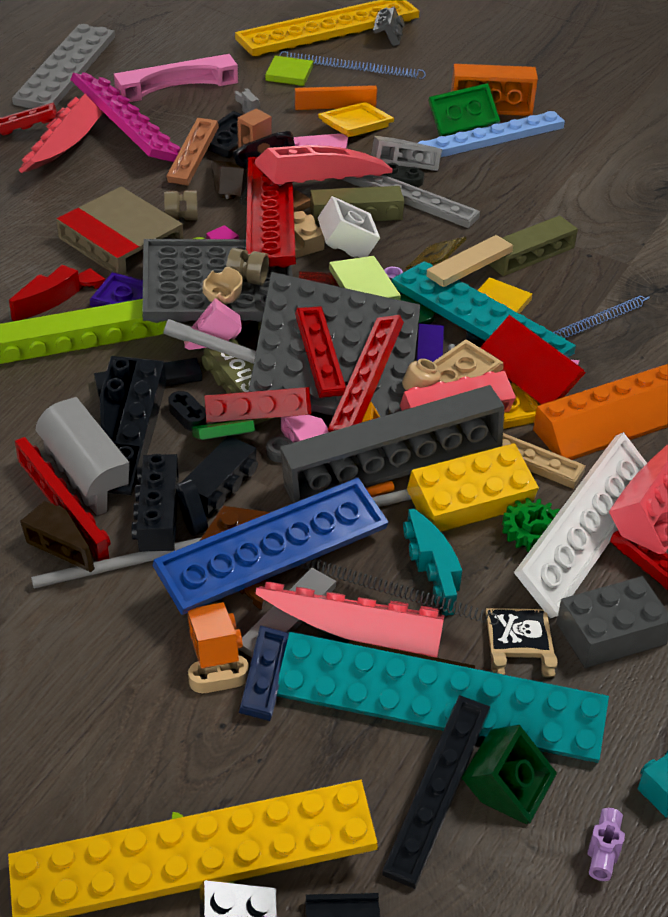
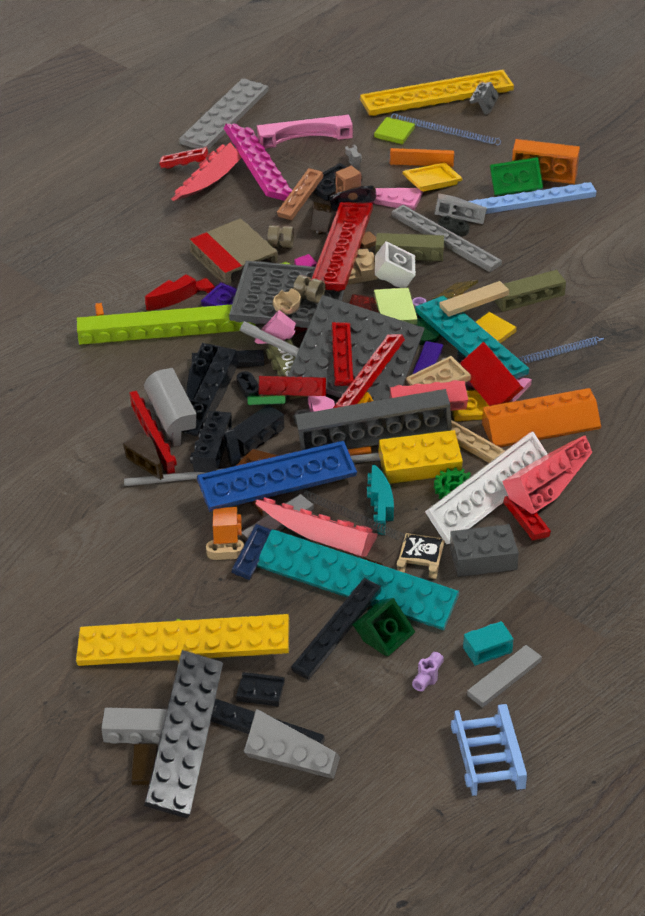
camera: 15 degrees right, 0 degrees up
(317, 163) = (387, 213): coral wedge -> none
(421, 374) = (408, 376): tan head -> none

